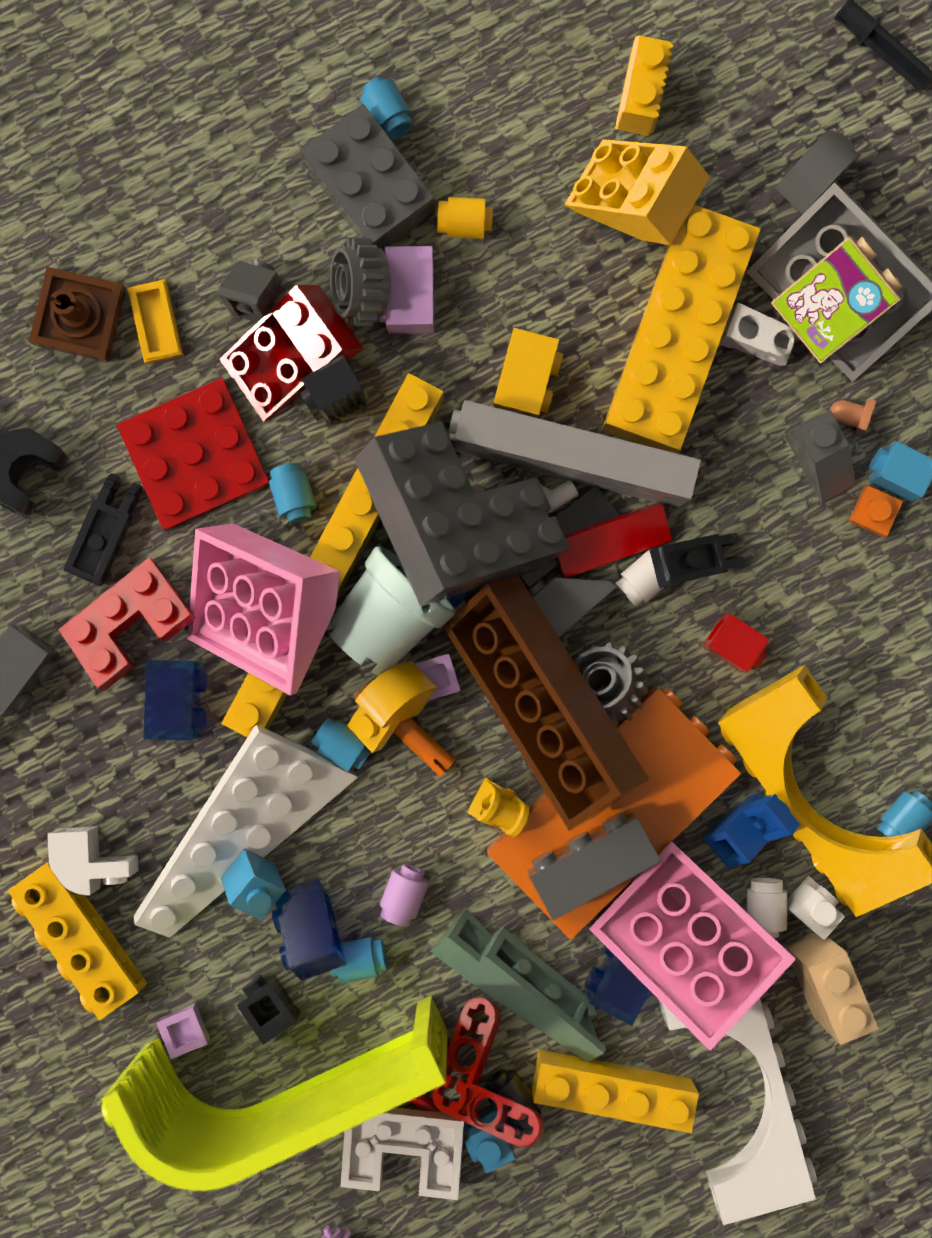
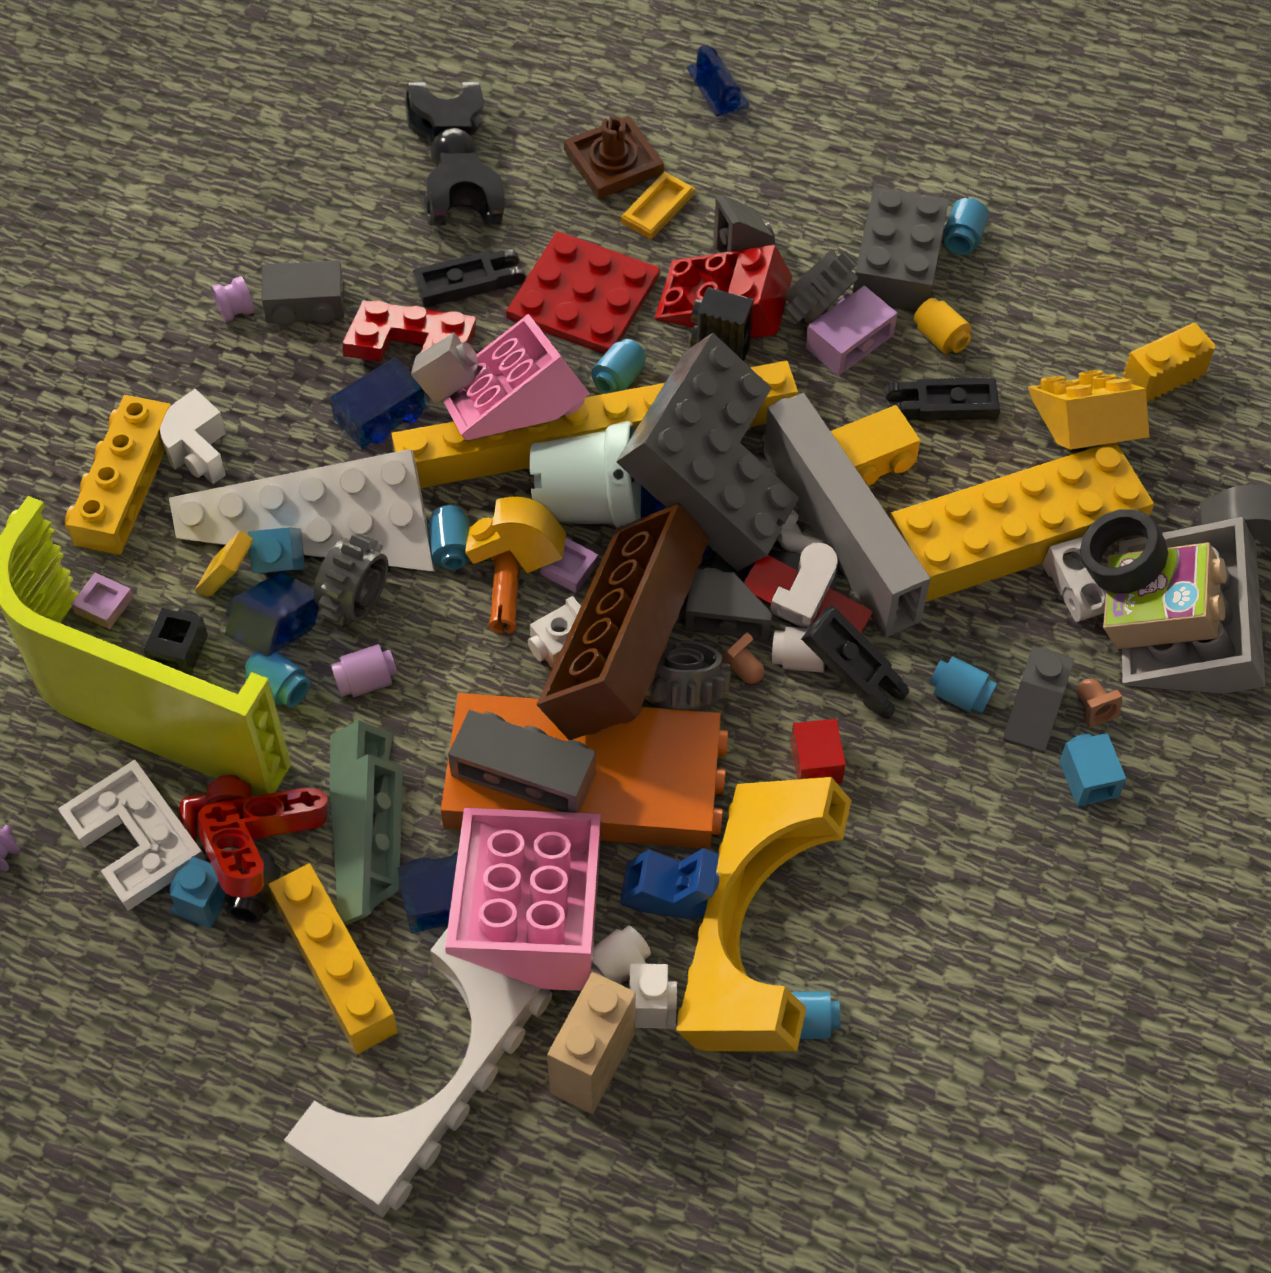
camera: 50 degrees right, 30 degrees down
(70, 163) = (716, 82): none -> clear blue hinge
(192, 634) = (445, 367): none -> light grey brick
(235, 933) = (224, 564): none -> yellow tile
(328, 854) = (351, 579): none -> dark grey gear
(484, 721) = (546, 632): none -> white brick
(499, 808) = (503, 669): yellow piece -> none
(529, 277) = (946, 398): none -> black hinge
(613, 627) = (743, 661): none -> nougat piece
(616, 539) = (810, 587): none -> white leg
(765, 278) = (1116, 526): none -> black tyre
(767, 494) = (962, 685): none -> dark azure brick
(875, 511) = (1039, 782): orange plate -> none

